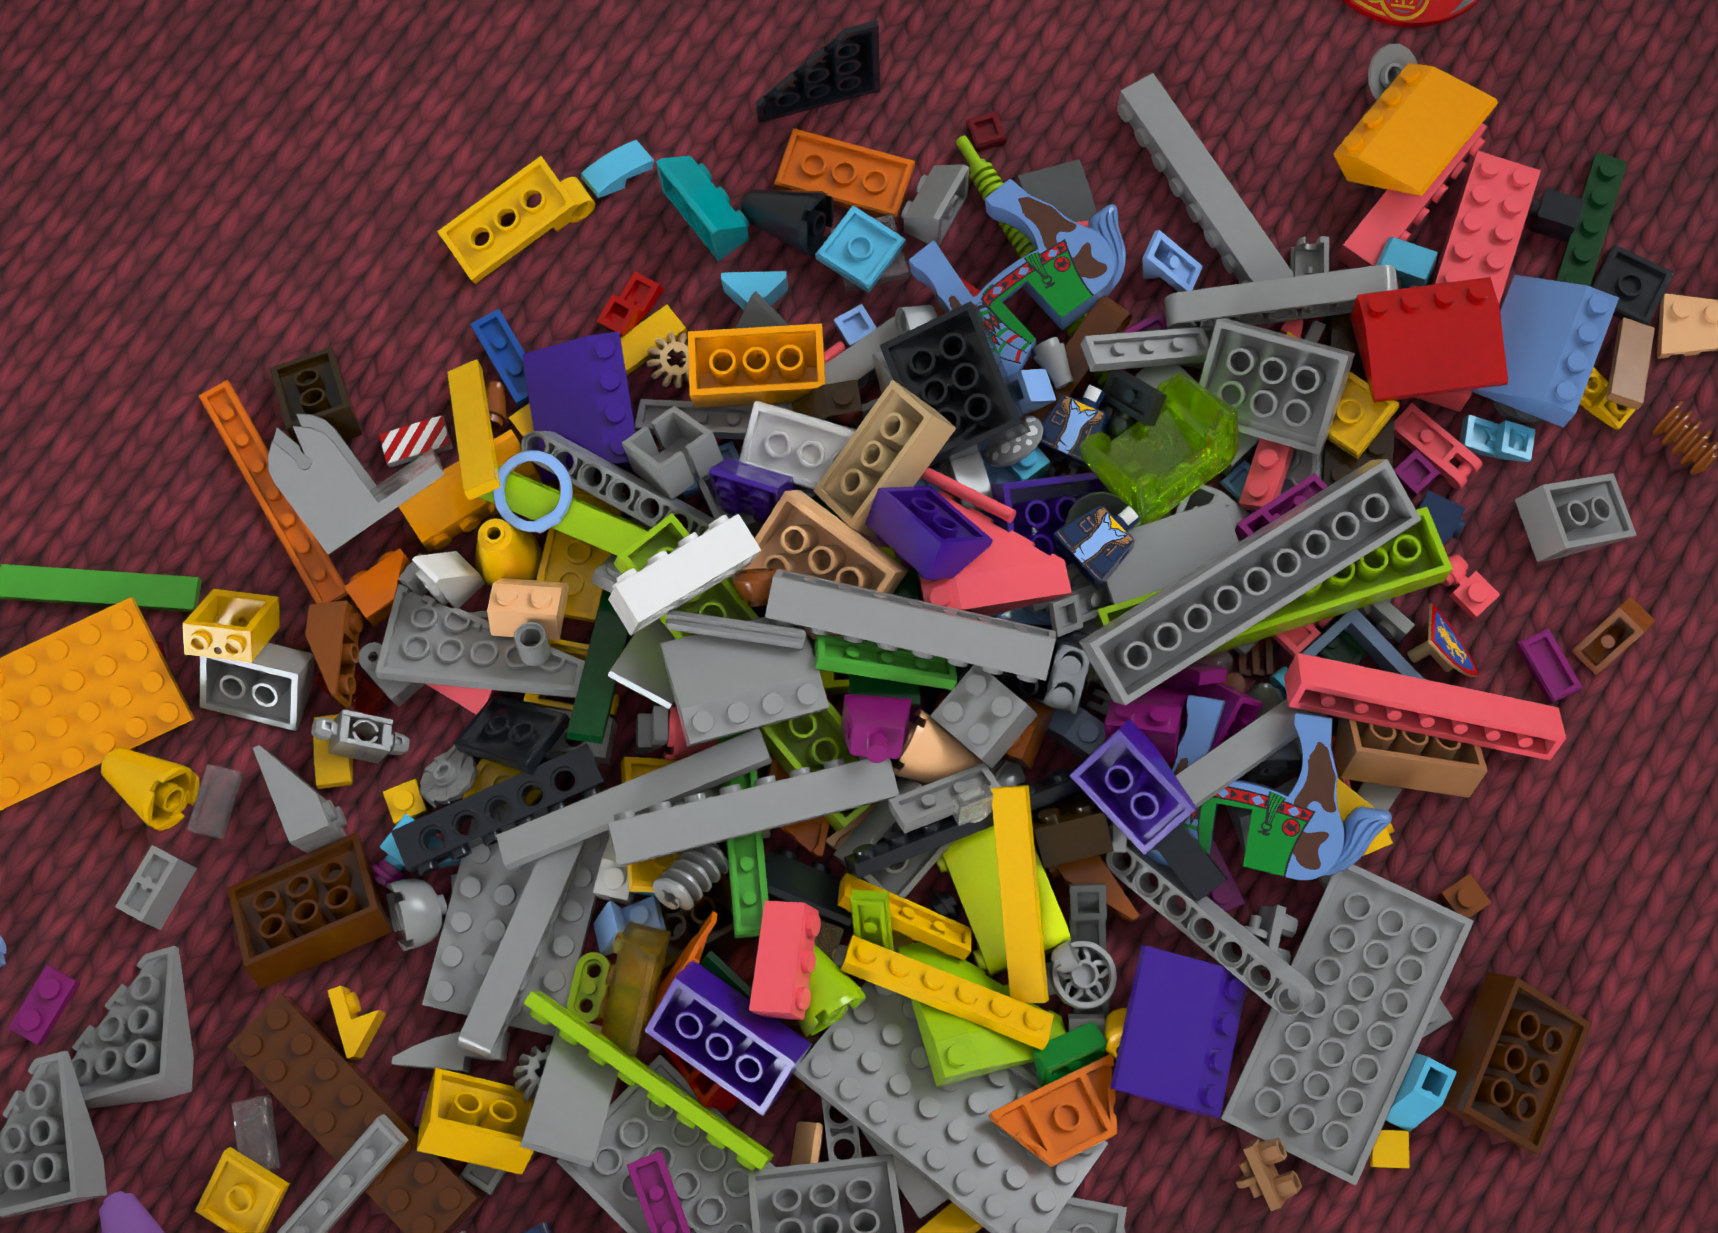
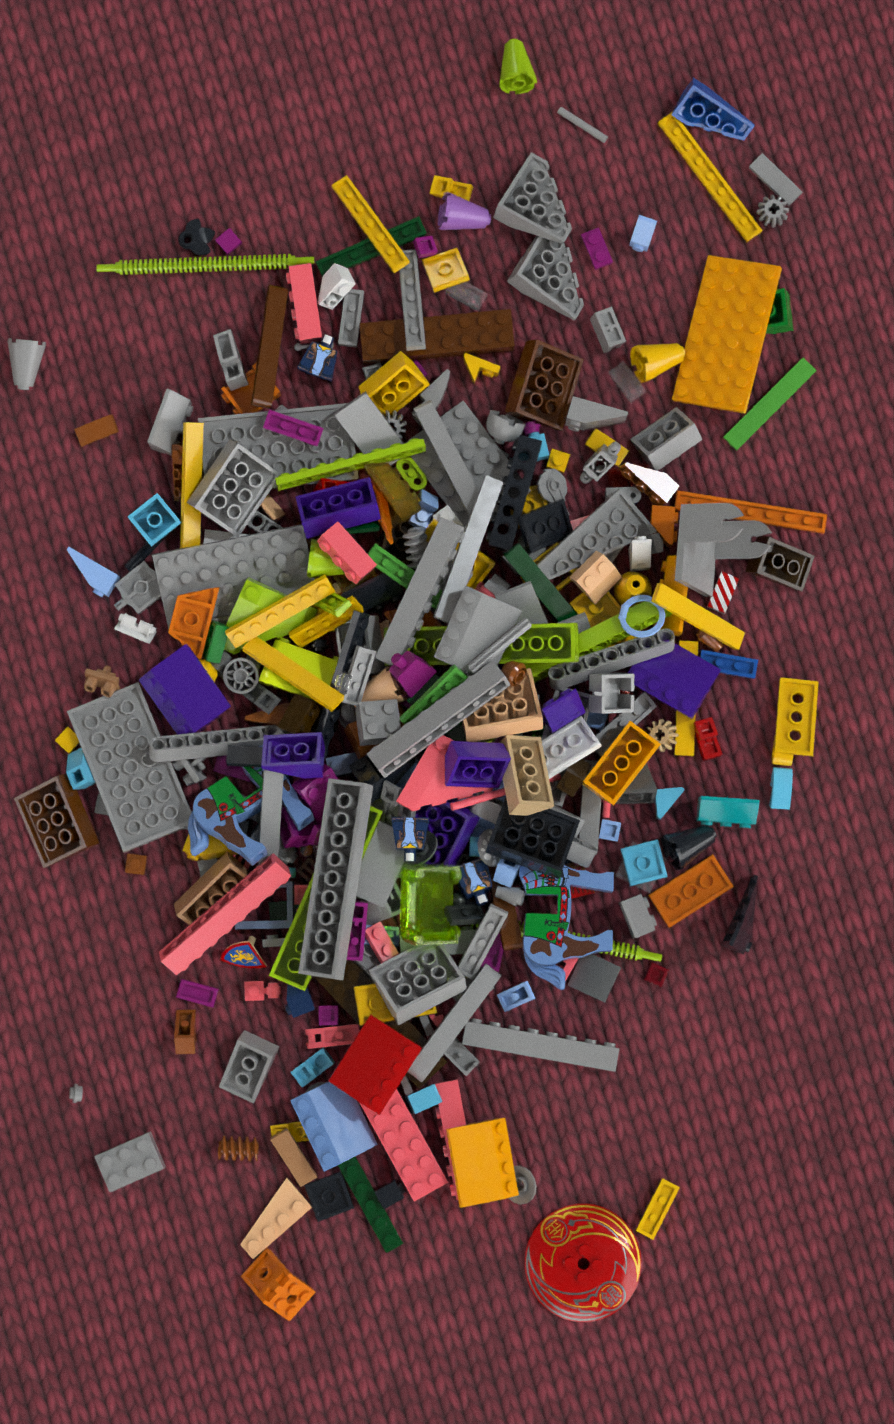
camera: 125 degrees right, 10 degrees up
(234, 623) = (705, 455): yellow window -> none
(529, 633) = (567, 562): light grey beam -> none
(684, 573) = (539, 641): white brick -> none
(1067, 956) = (252, 672): light grey hinge -> none
(1149, 1184) = (141, 631): none -> white hinge

